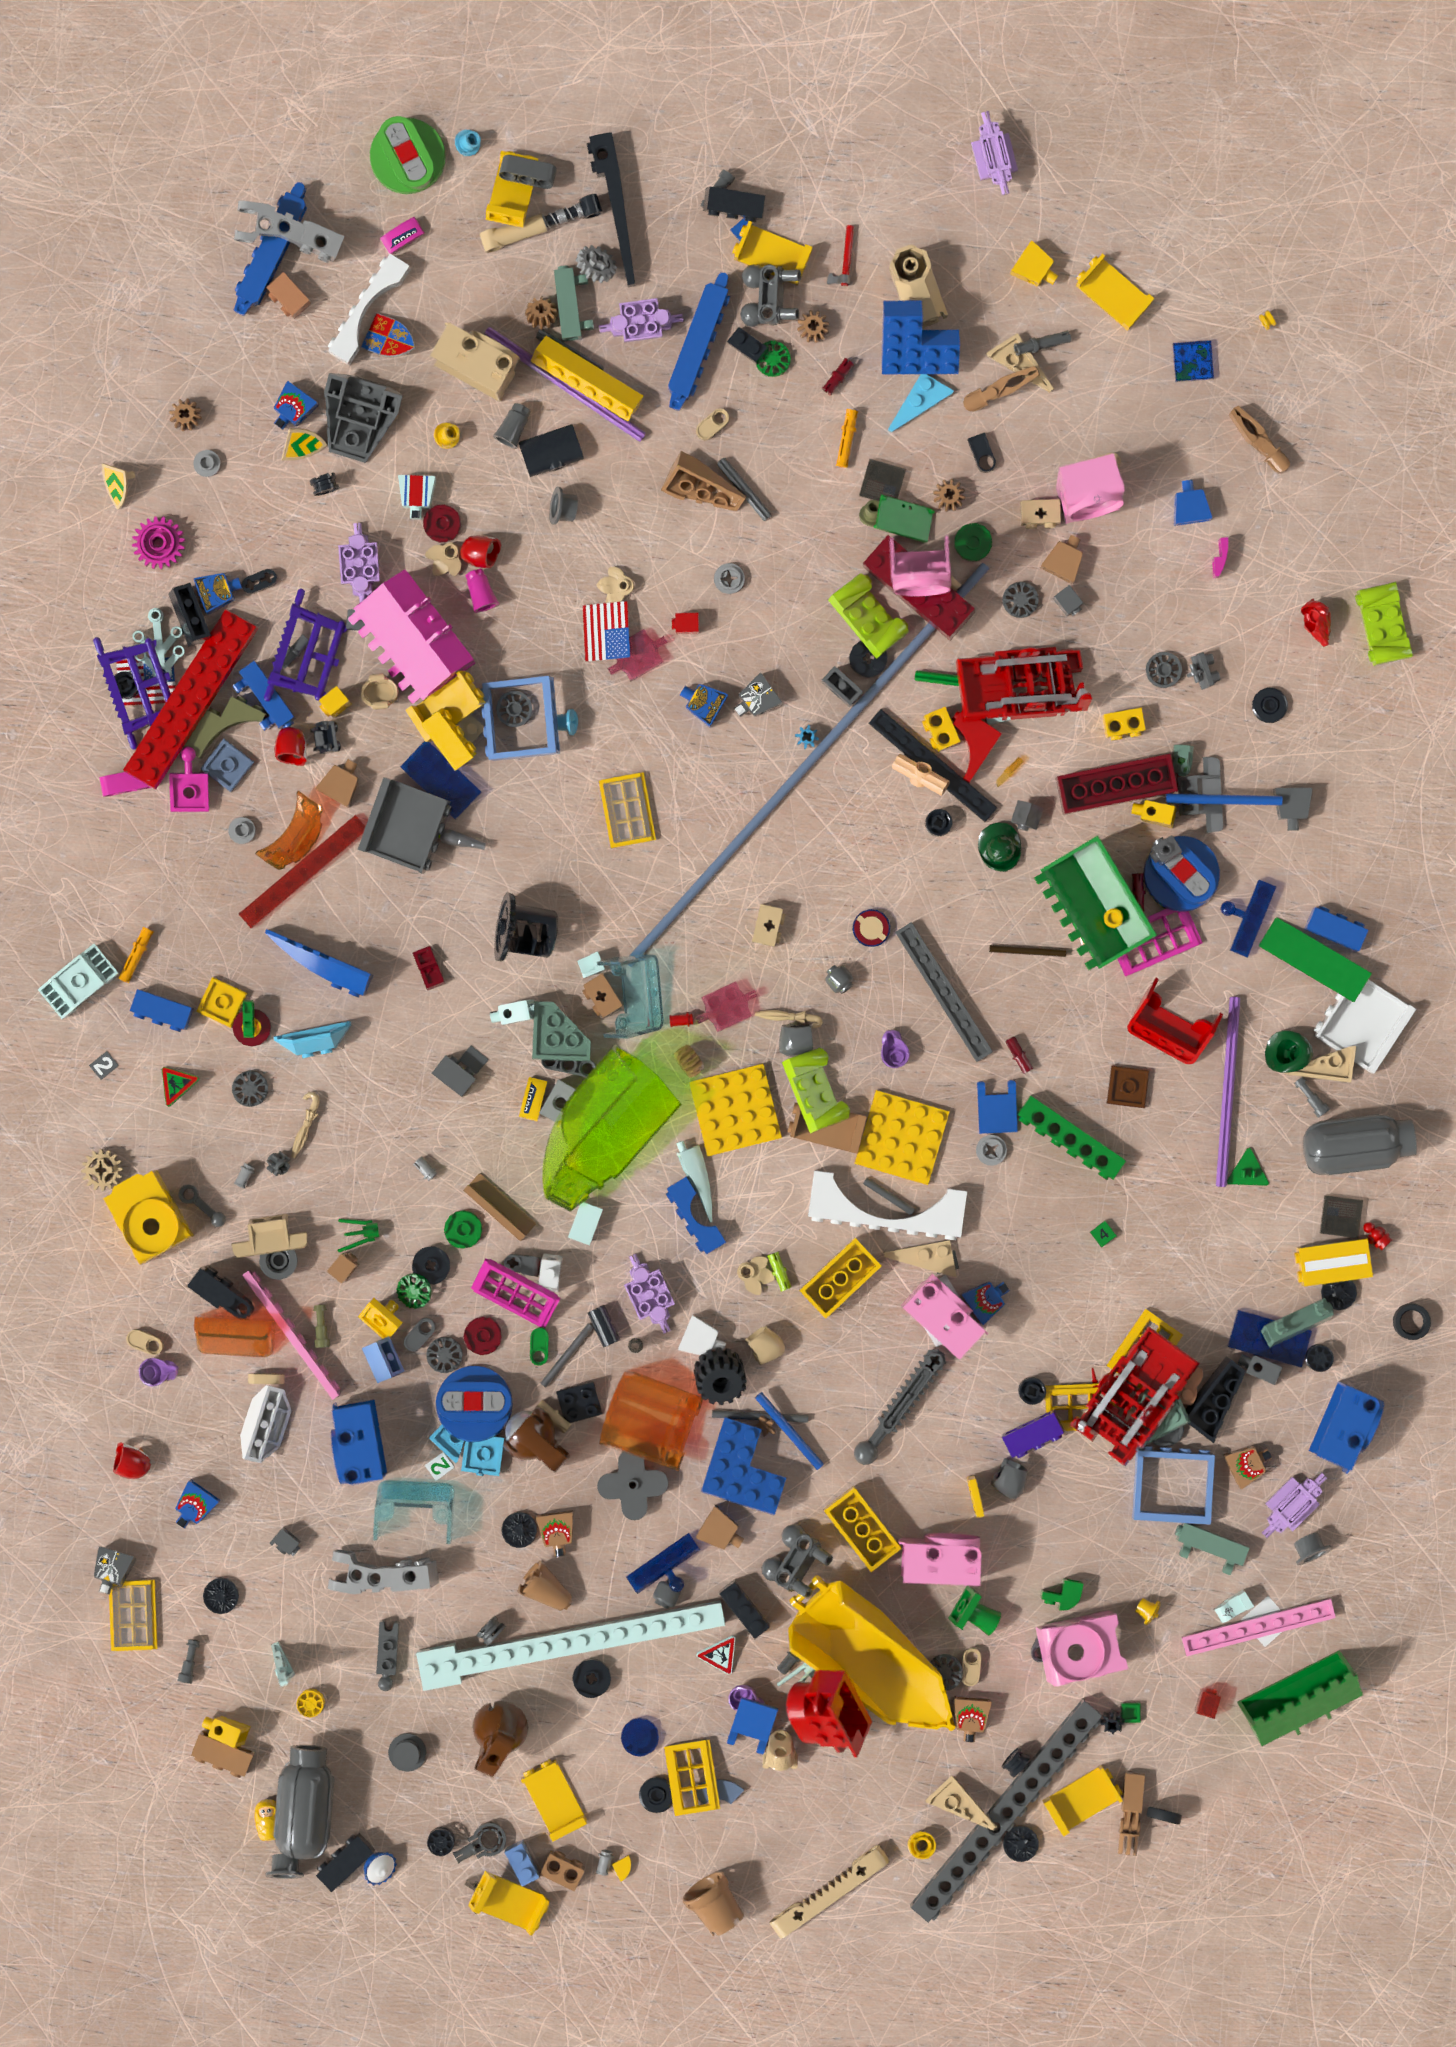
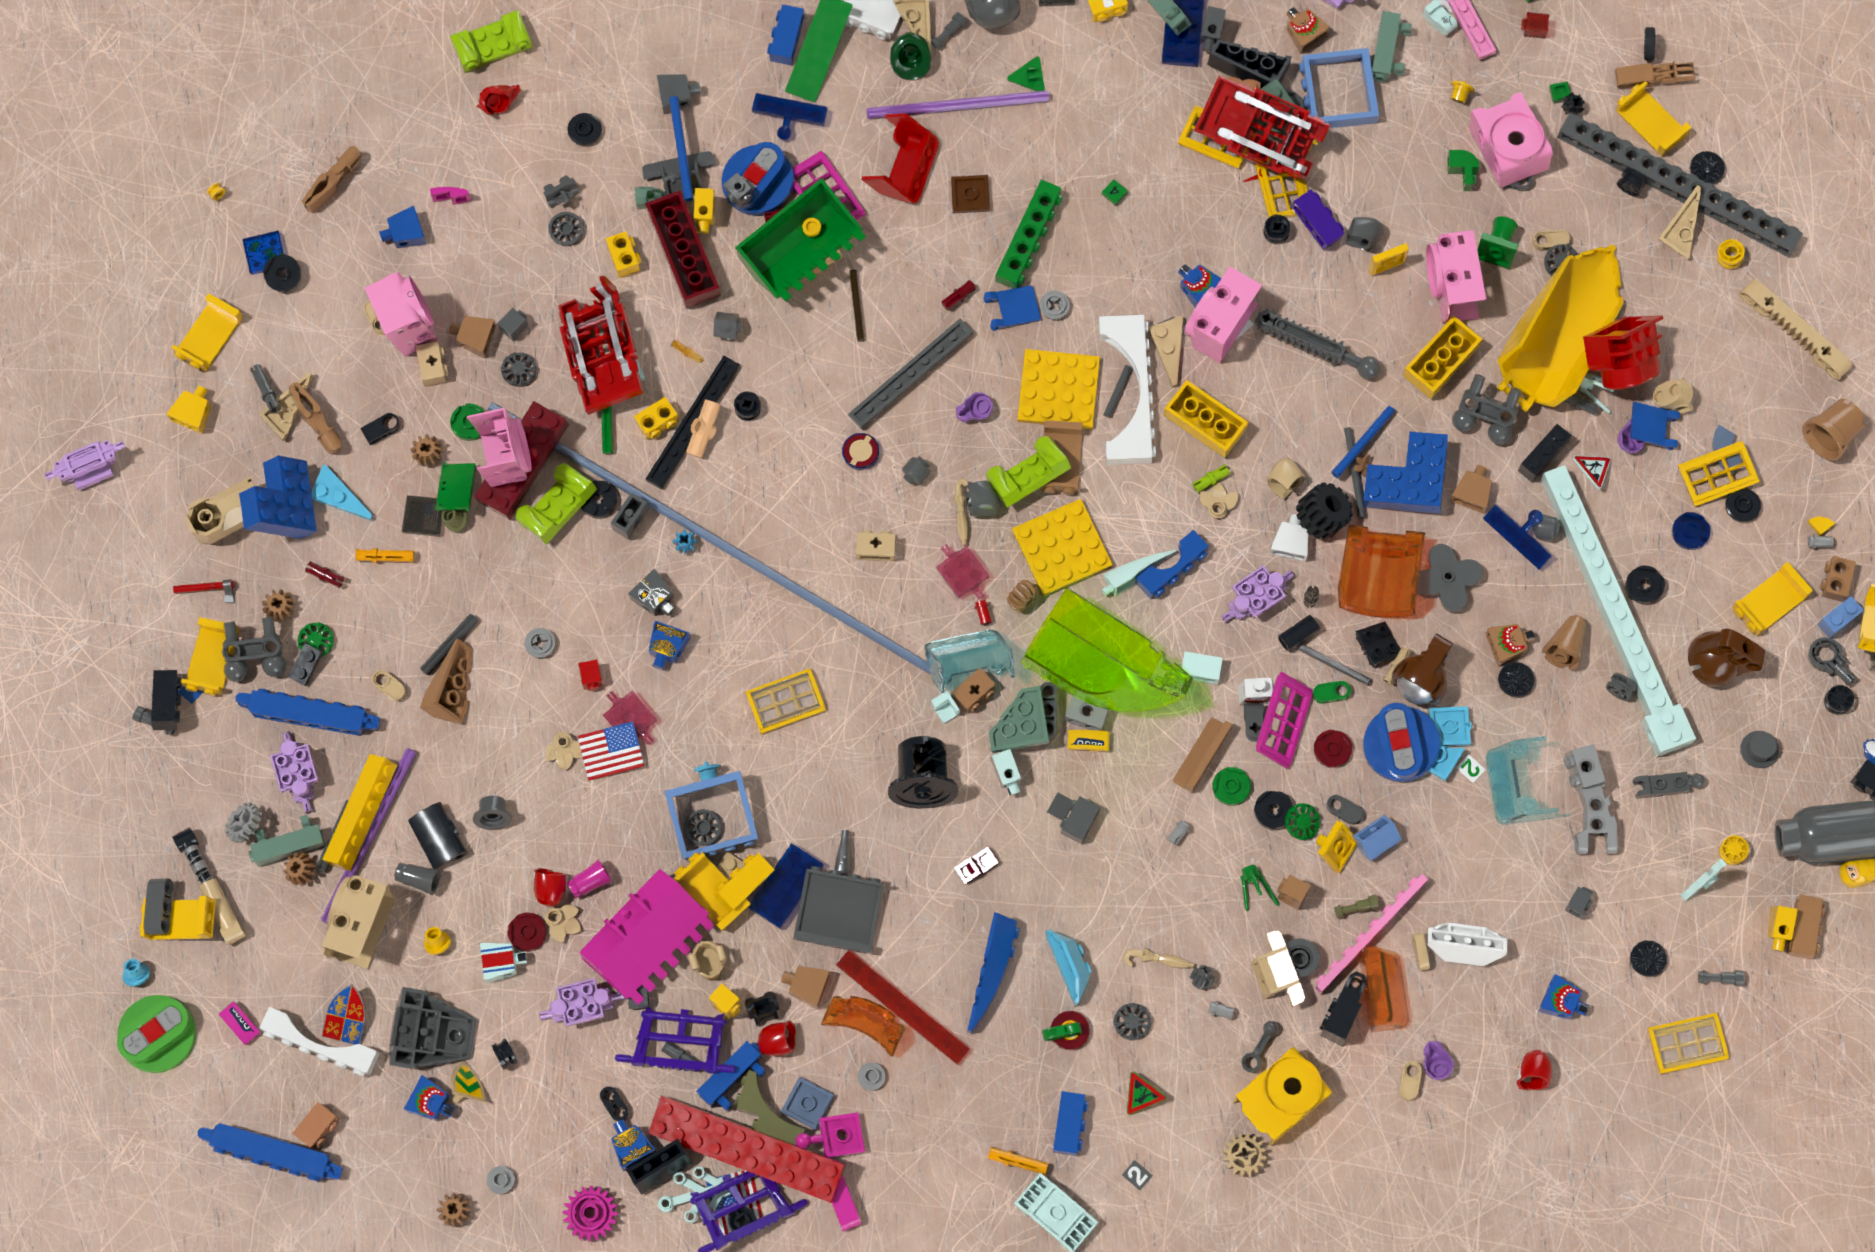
camera: 100 degrees left, 15 degrees down
(112, 1568) = (1646, 1069): dark grey torso -> none
(221, 1002) = (1050, 1065): yellow tile -> none
(301, 234) = (252, 1112): light grey brick -> none
(353, 1451) = (1466, 843): blue piece -> none
(444, 1354) = (1359, 782): dark grey wheel -> none
(610, 170) = (166, 819): black piece -> none
(971, 1715) = (1597, 230): medium nougat torso -> none
(979, 740) = (662, 381): red arch -> none
(999, 847) = (761, 347): dark green hat -> none
(1153, 376) = (277, 263): none -> black plate

